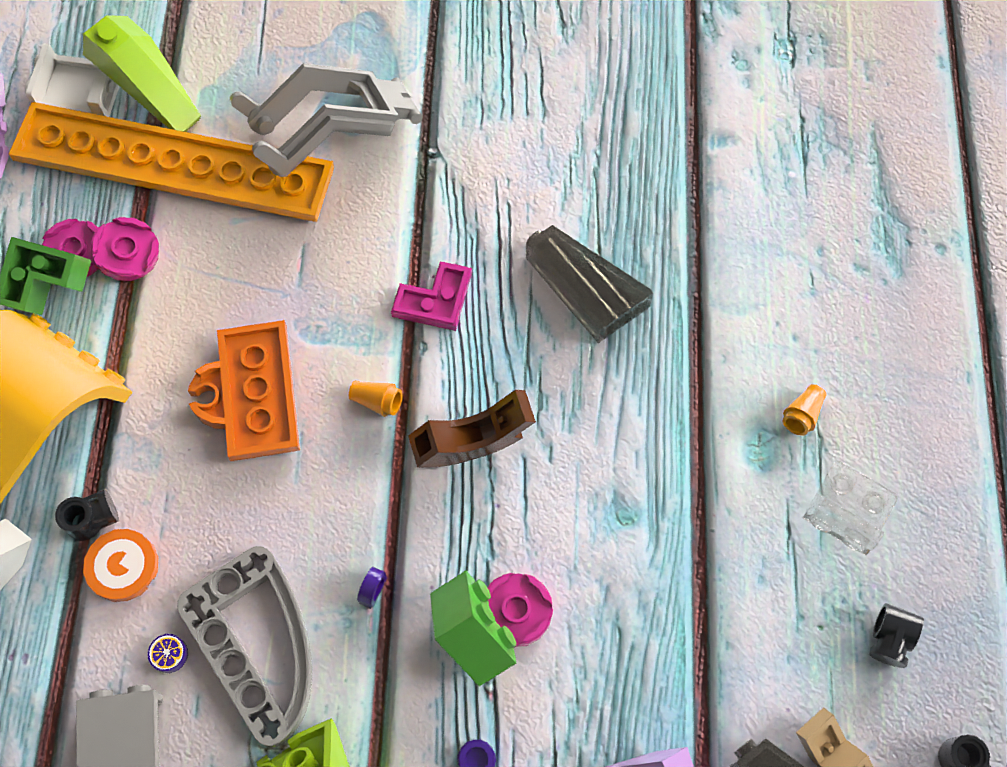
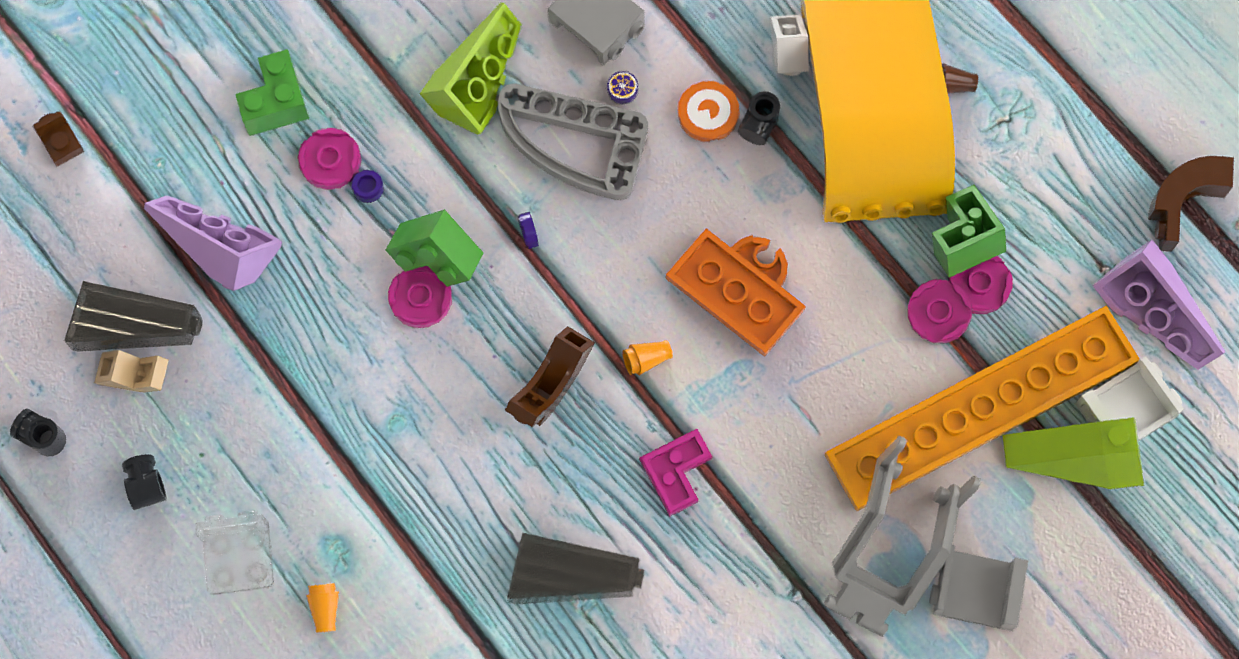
camera: 140 degrees right, 5 degrees up
(296, 42) = (980, 590): none -> light grey panel

